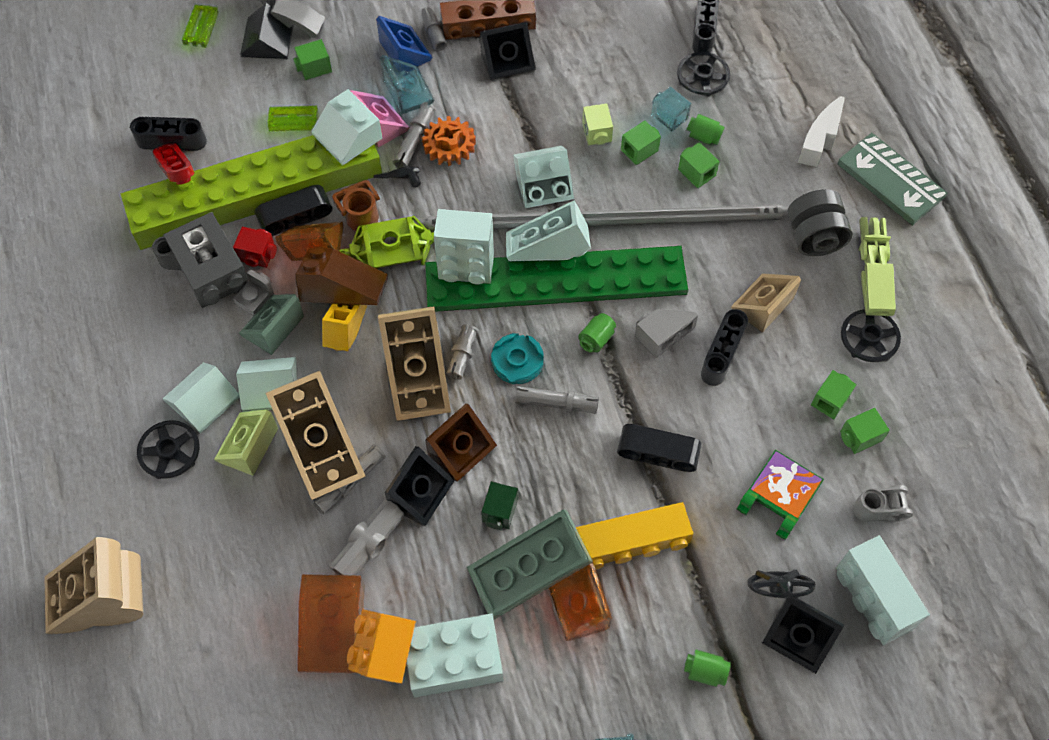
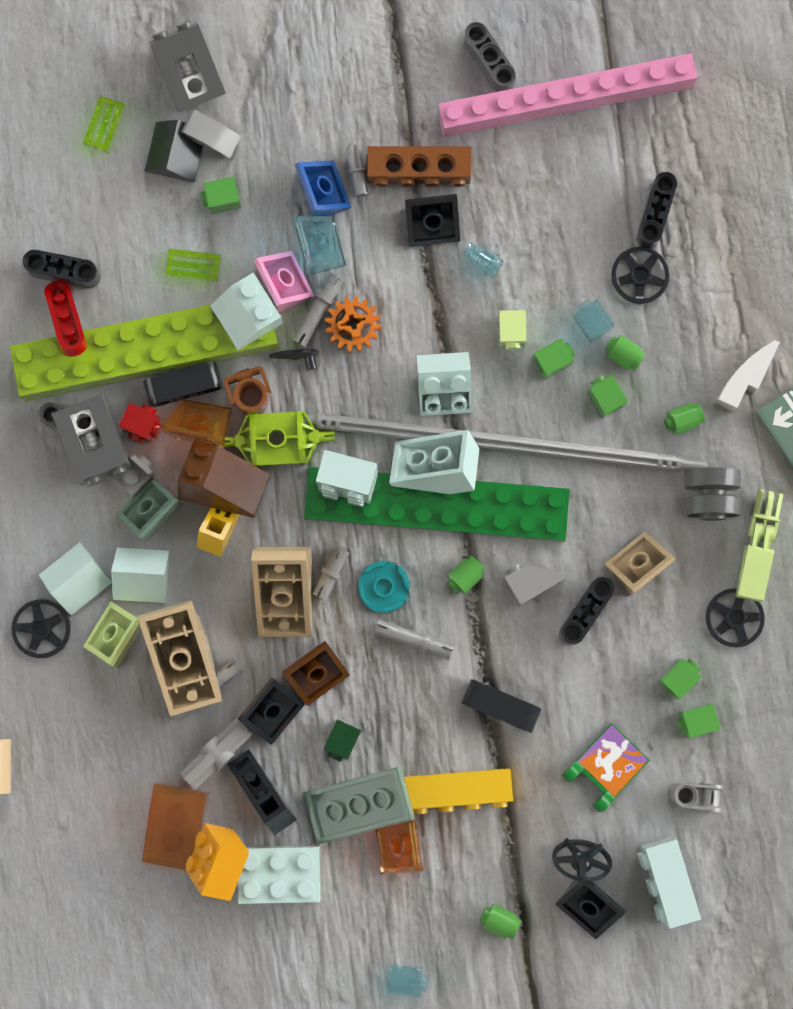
camera: 10 degrees right, 20 degrees up
(423, 573) = (262, 792): none -> black slope
(561, 77) = (483, 259): none -> clear light blue cone
(774, 173) = (684, 418): none -> bright green brick

